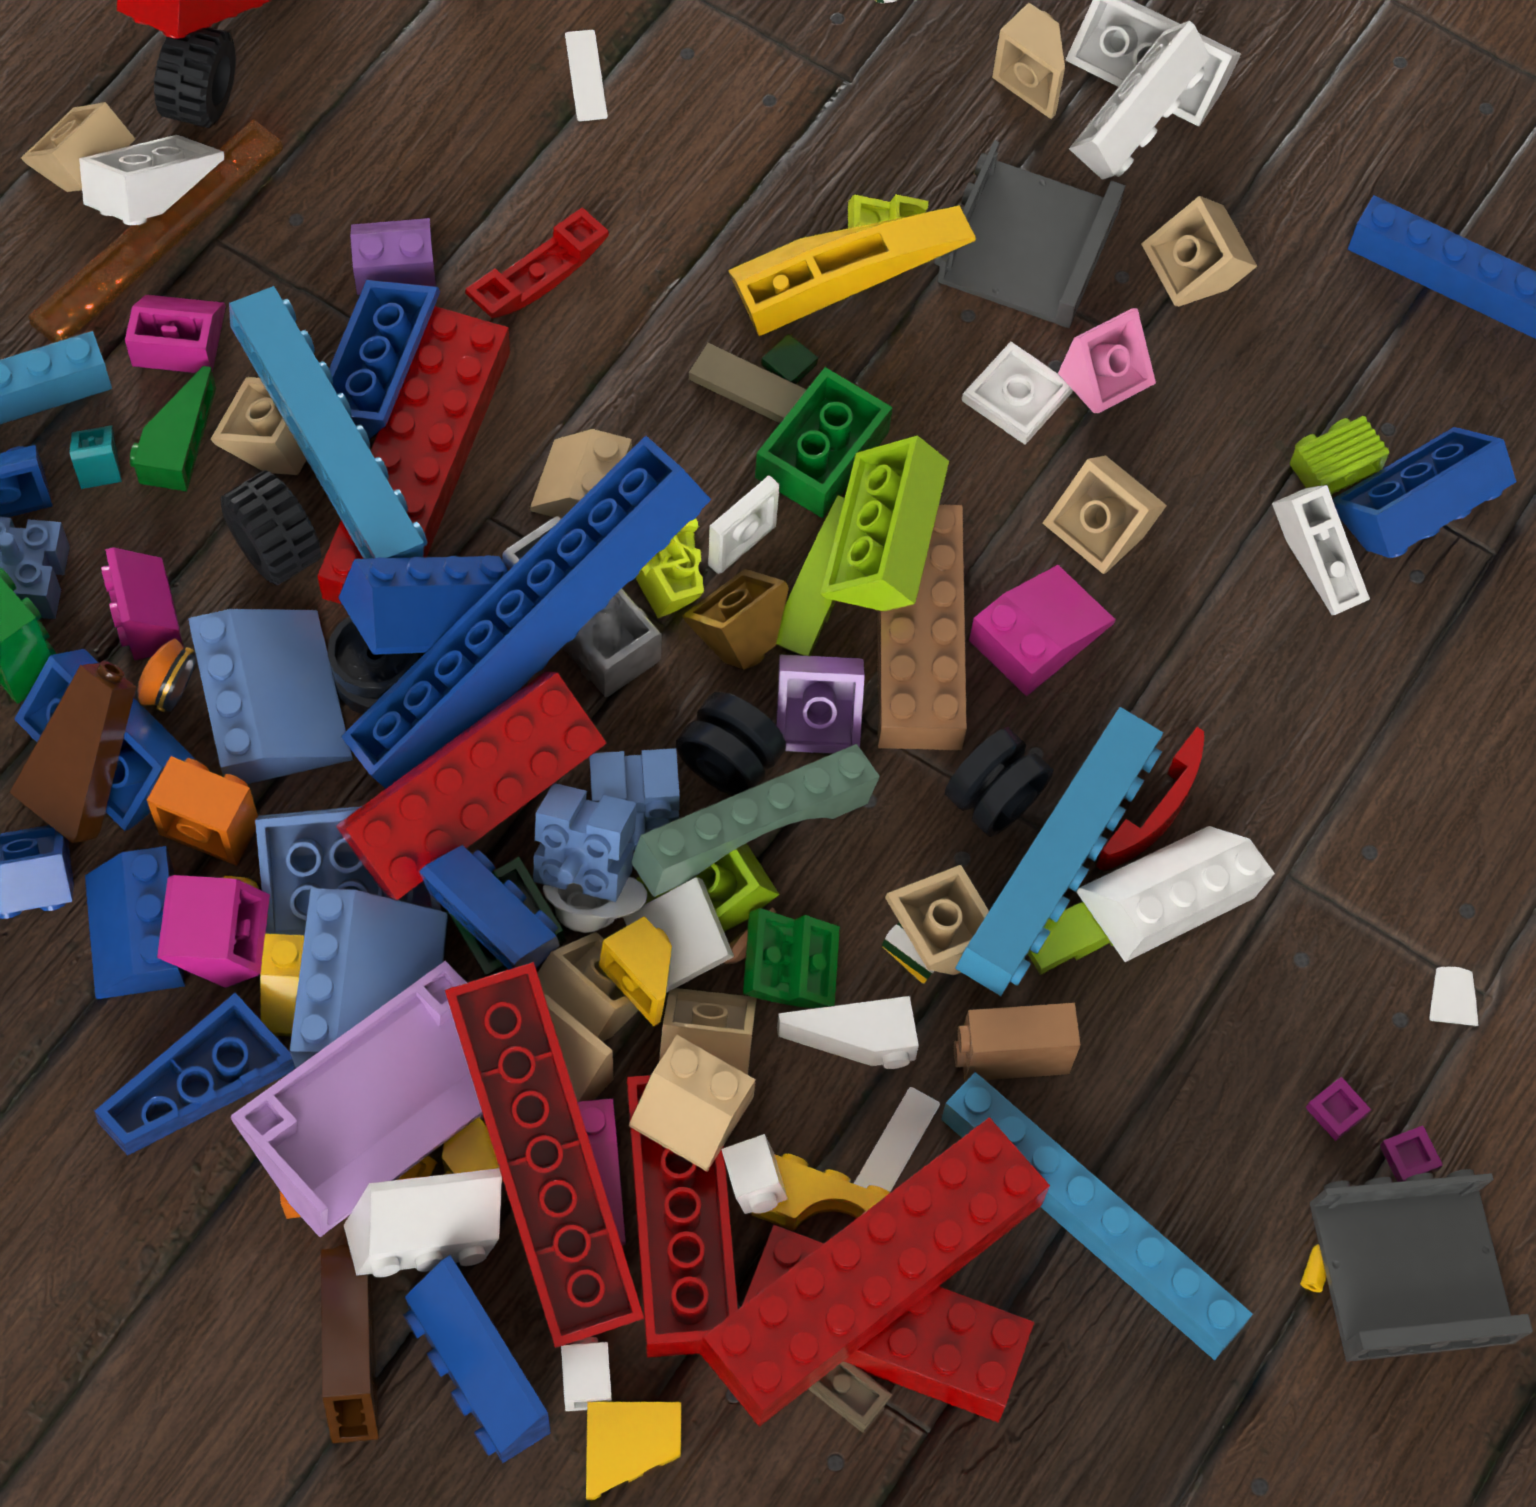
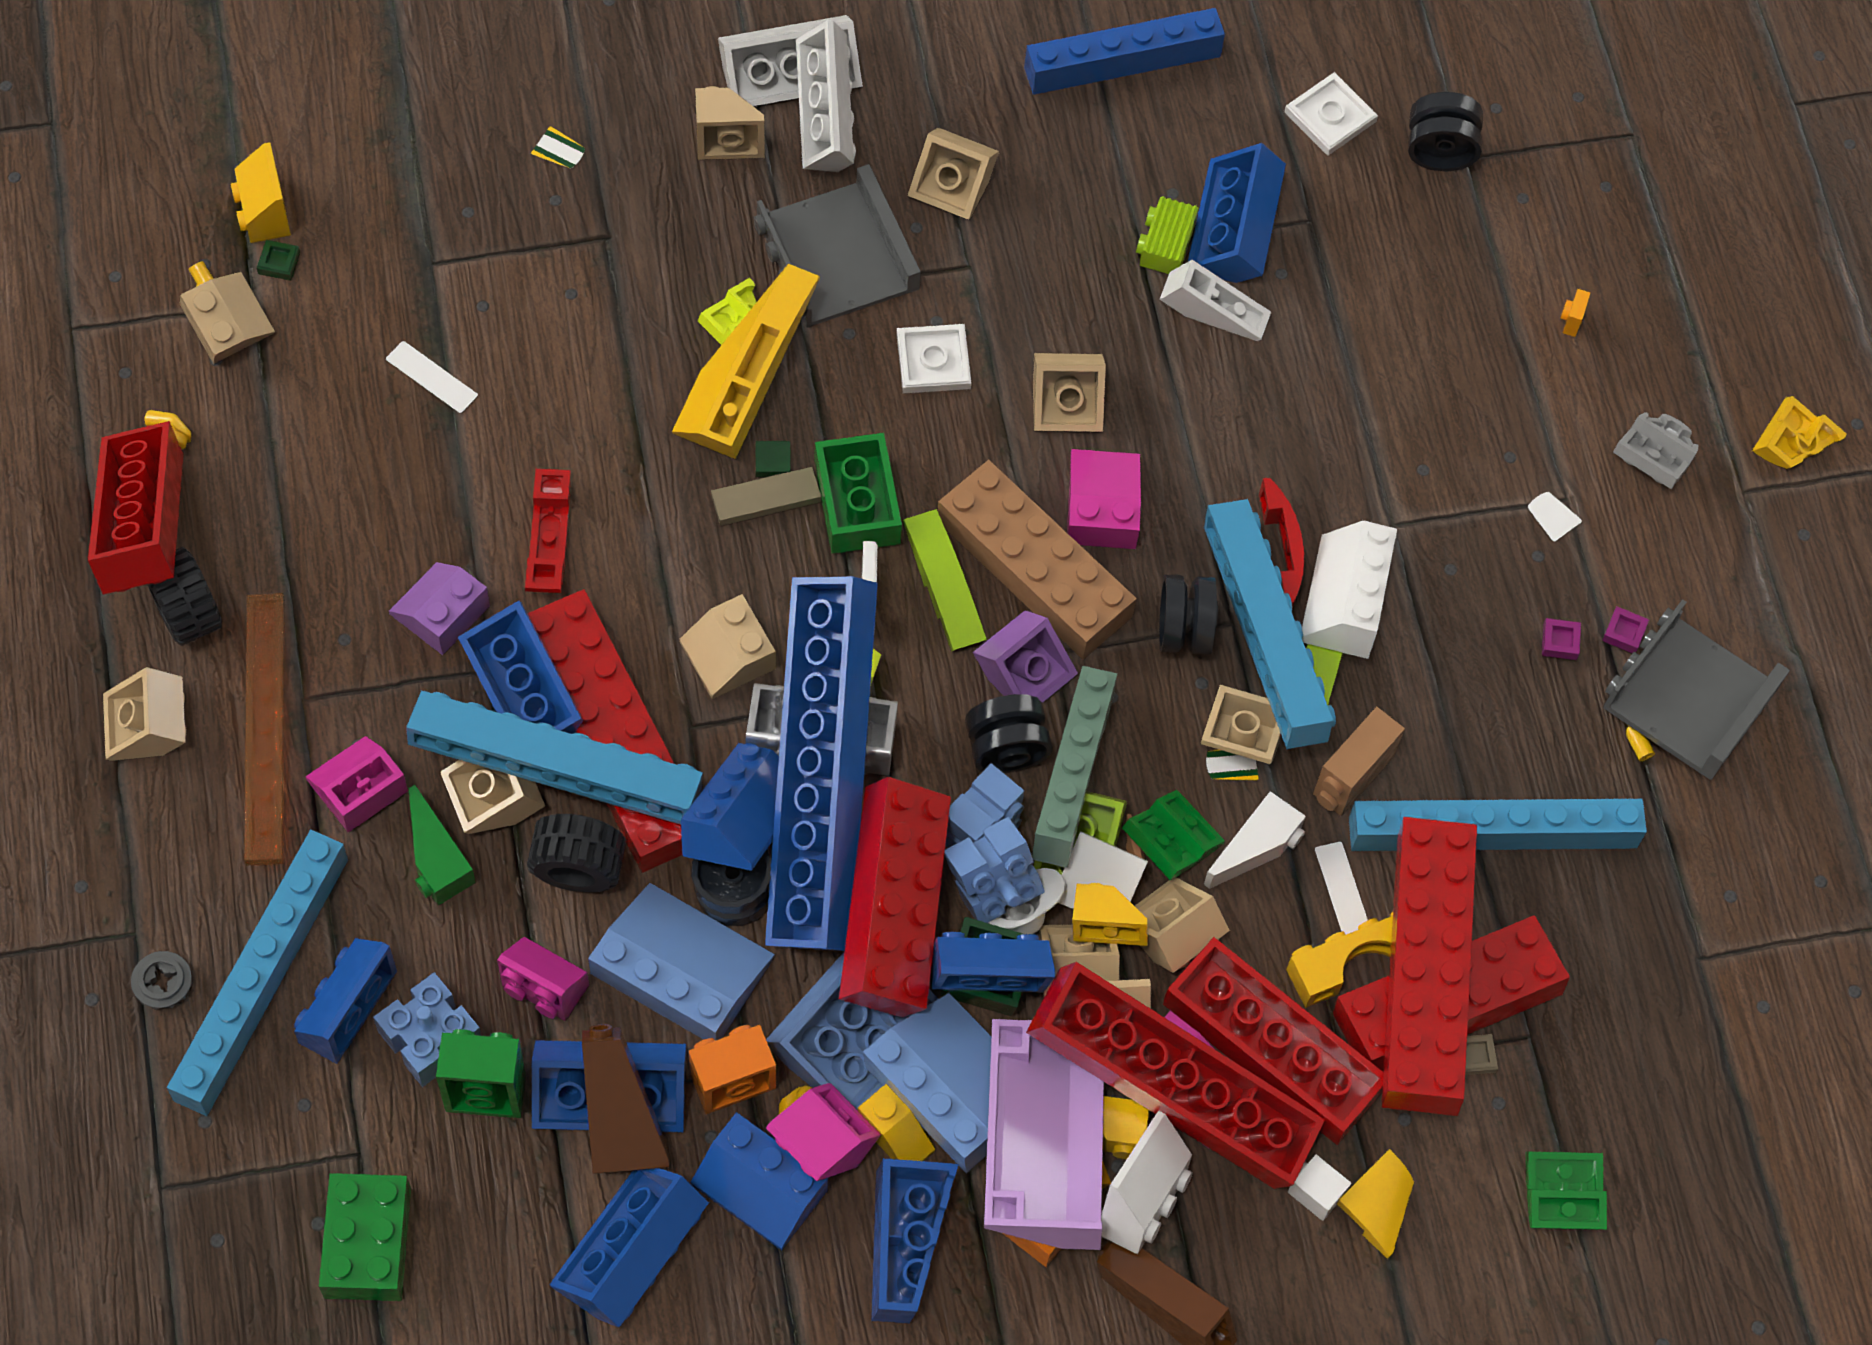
camera: 45 degrees left, 0 degrees up
(95, 457) = (393, 910): teal slope -> none
(145, 177) = (222, 695): white slope -> none
(166, 676) = (616, 1004): piece -> none
(477, 1362) = (1254, 1237): blue slope -> none
(692, 1102) = (1227, 966): tan slope -> none
(741, 618) = (922, 649): pearl gold slope -> none
(754, 1175) = (1301, 977): white brick -> none
(886, 525) = (965, 512): lime slope -> none
(1109, 362) = (977, 292): bright pink slope -> none

